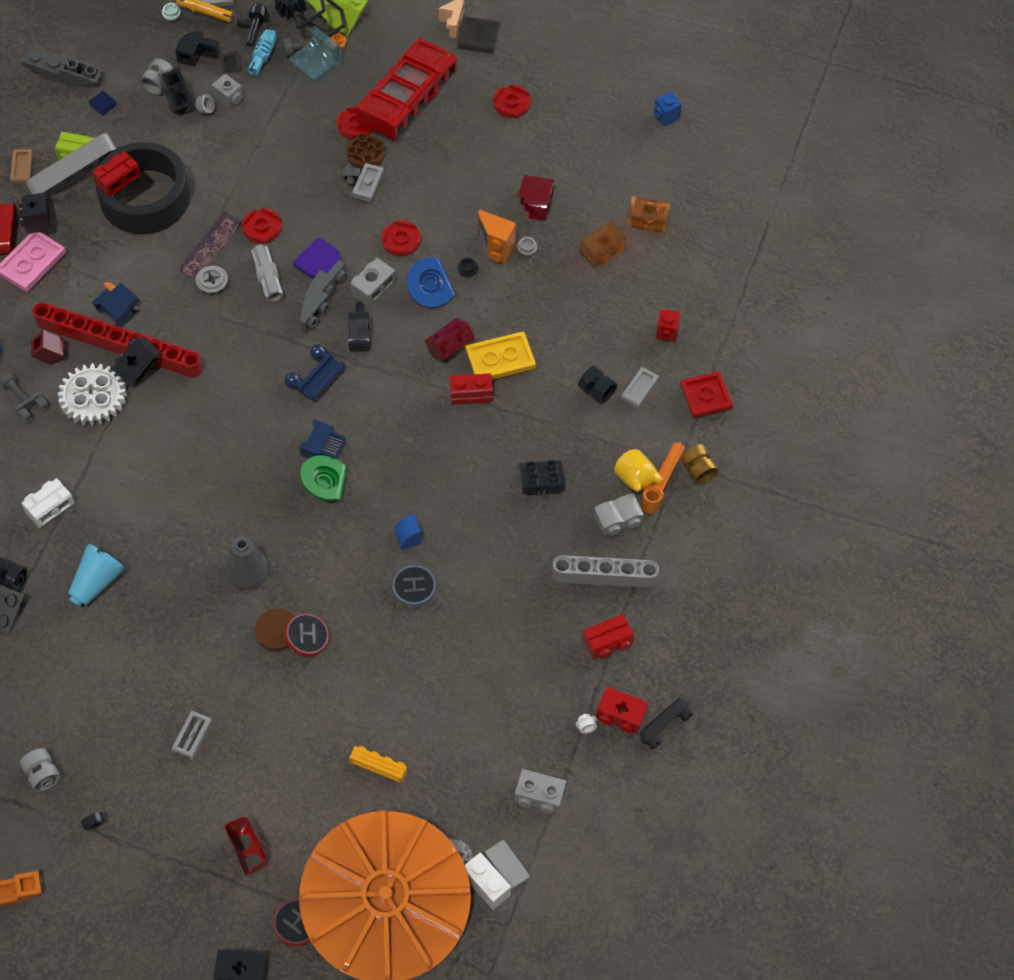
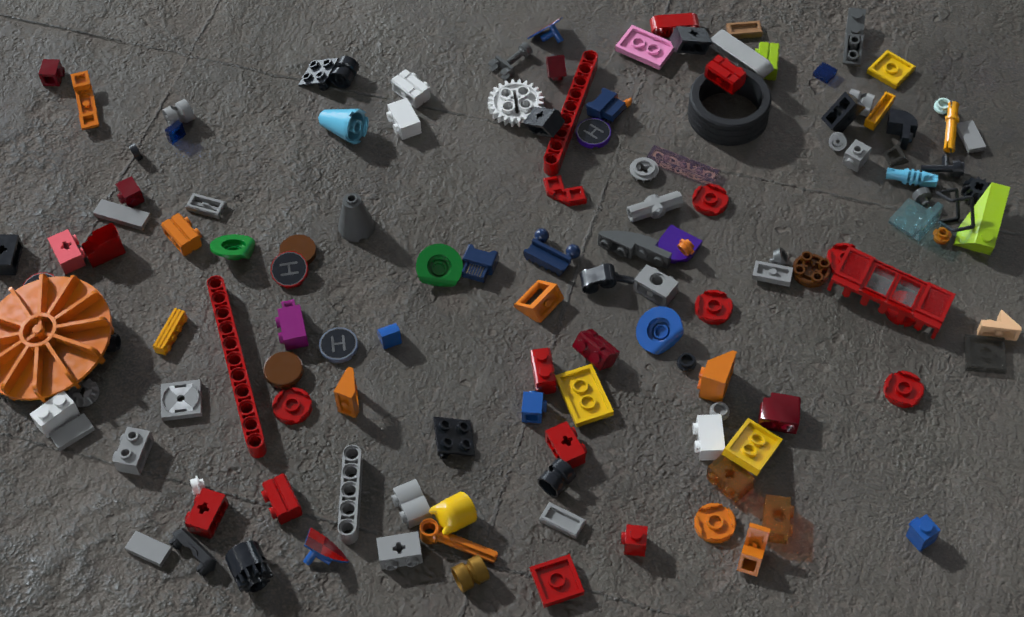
camera: 90 degrees right, 5 degrees down
(68, 774) = (175, 132): none -> clear blue tile
(95, 511) = (403, 118): none -> white brick
(109, 46) = (891, 69): none -> yellow tile
(150, 321) = (593, 133): none -> tile
(156, 52) = (879, 111): none -> light orange piece
(162, 823) = (129, 192): none -> dark red brick
(191, 834) = (122, 214): none -> light grey tile
(226, 365) = (569, 196): none -> red tile
(236, 901) = (66, 251): none -> coral brick
(237, 756) = (181, 234): none -> orange brick
(266, 696) = (233, 246): none -> green hat
(331, 247) = (686, 247): none -> orange plate
(372, 373) = (543, 304): none -> orange tile
(384, 631) = (291, 325): none -> magenta brick
(424, 695) = (218, 294): none -> red beam
(444, 640) = (283, 370): none -> reddish brown tile
(473, 760) = (191, 405): none -> light grey piece
(489, 632) = (292, 406): none -> red tile
(496, 566) = (347, 394): none -> orange tile
(511, 402) = (533, 407): none -> blue brick
(558, 255) = (710, 436): none -> white brick
(559, 376) = (565, 445): none -> red brick
(575, 219) = (752, 446): none -> yellow plate
(647, 265) = (714, 523): none -> orange tile
(659, 771) = (148, 548): none -> light grey tile
(668, 516) = (390, 546): none -> light grey brick
(670, 595) = (322, 548): none -> shield
(682, 237) = (753, 549): none -> orange brick
(690, 662) = (248, 566): none -> black gear

